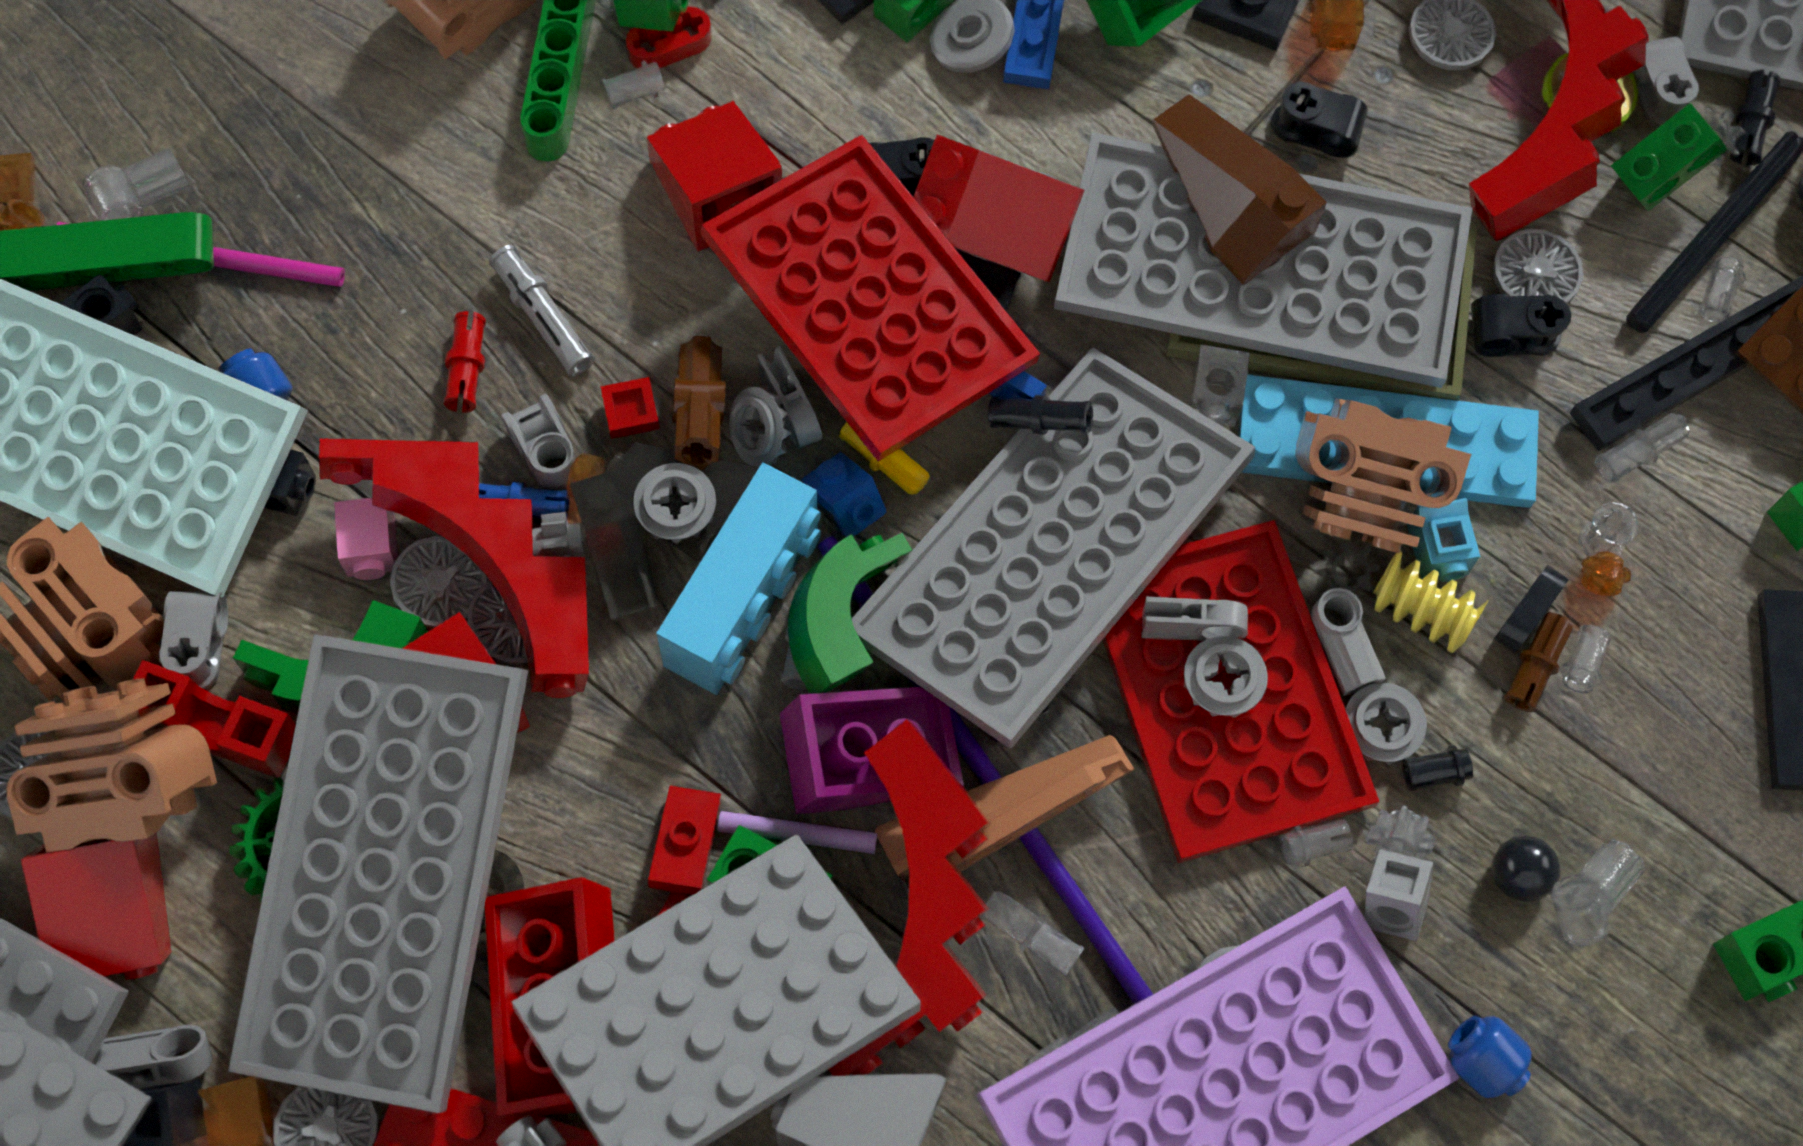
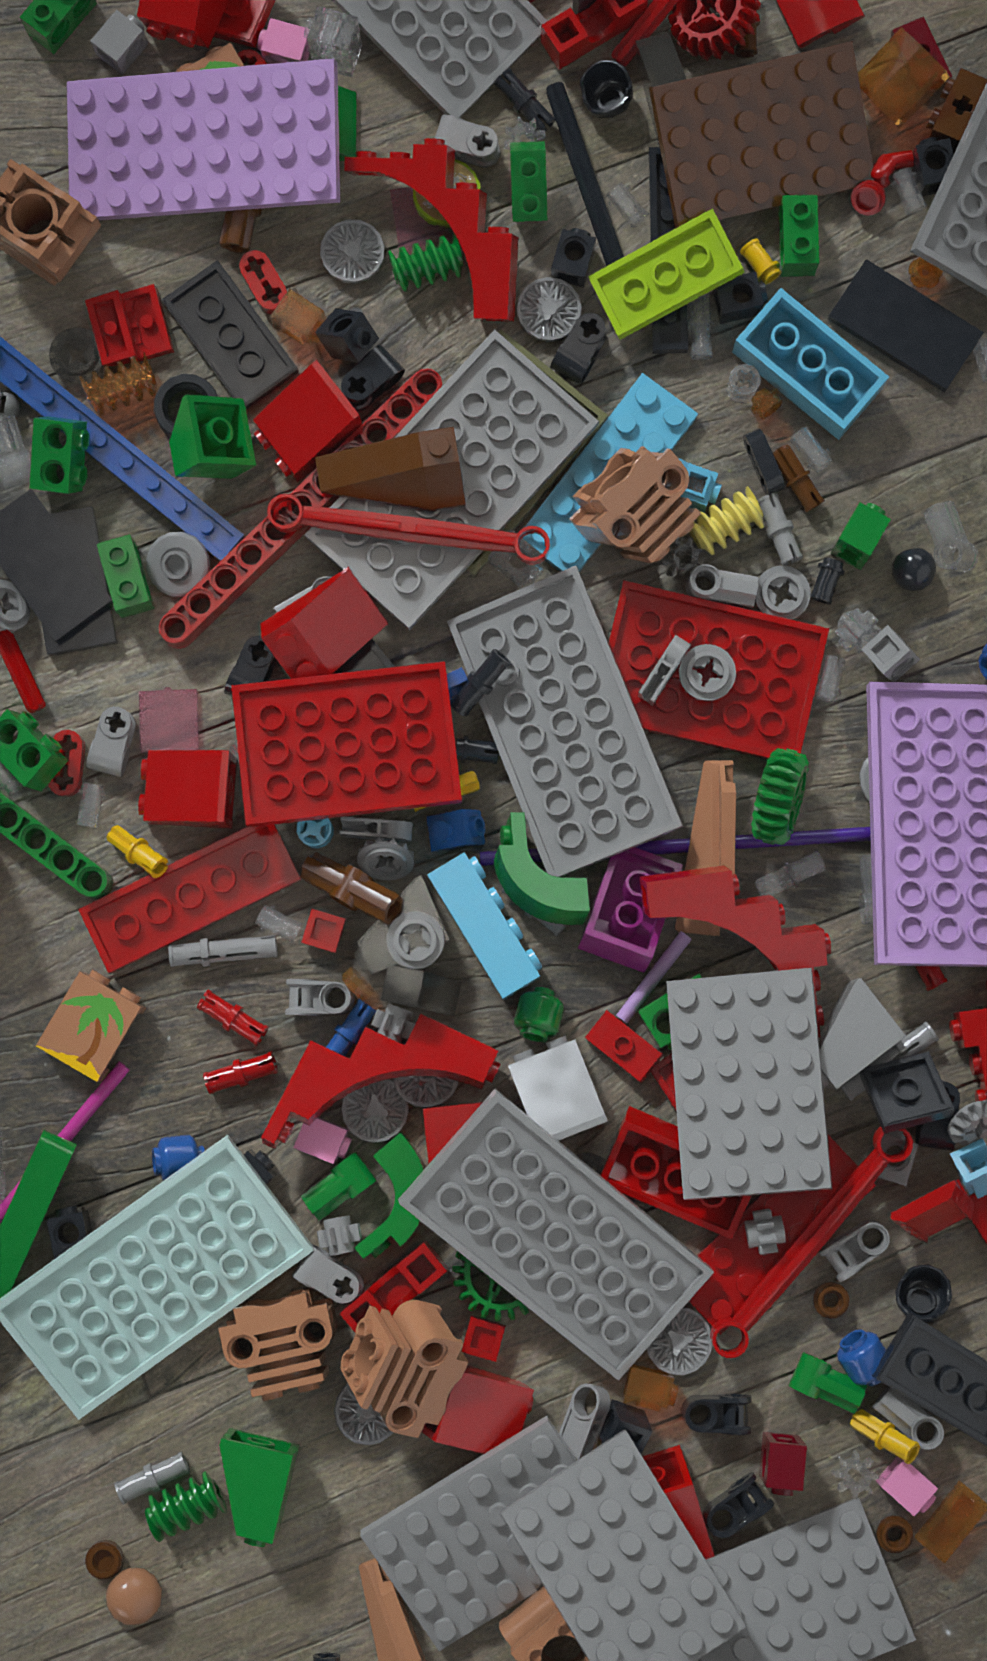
camera: 50 degrees left, 15 degrees up
(203, 869) = (483, 1338): none -> red plate
(251, 618) = (339, 1235): none -> light grey gear
(326, 594) = (344, 1182): none -> green piece
(369, 207) = (90, 1024): none -> nougat panel
(400, 404) = (240, 1072): none -> red pin
(578, 784) = (557, 1089): none -> light grey slope
(590, 241) = (189, 895): none -> red plate
(607, 157) = (138, 851): none -> yellow axle
(610, 352) = (278, 923): none -> clear pin
(666, 711) = (538, 1014): none -> green head
(720, 69) = (109, 749): none -> light grey piece
(746, 323) = (313, 828): none -> medium azure wheel
(789, 117) = (168, 720): none -> clear pink piece
(955, 462) = (474, 750): none -> black pin
(1057, 98) = (271, 549): none -> red beam
(1124, 847) = (779, 796): none -> green gear
(1174, 236) = (408, 529): none -> red piece
(1228, 67) = (306, 422): none -> red slope
(1353, 64) = (347, 335): none -> black brick
(1462, 674) = (779, 529): none -> light grey pin
(1492, 106) = (426, 262): none -> green piece
(1523, 768) = (861, 535): none -> green brick
(1606, 274) = (573, 271): none -> black brick
(1675, 364) = (666, 274): none -> lime plate
(1690, 594) = (810, 363): none -> medium azure brick
(1713, 452) = (731, 310): none -> black brick
(1765, 484) = (760, 261): none -> yellow pin

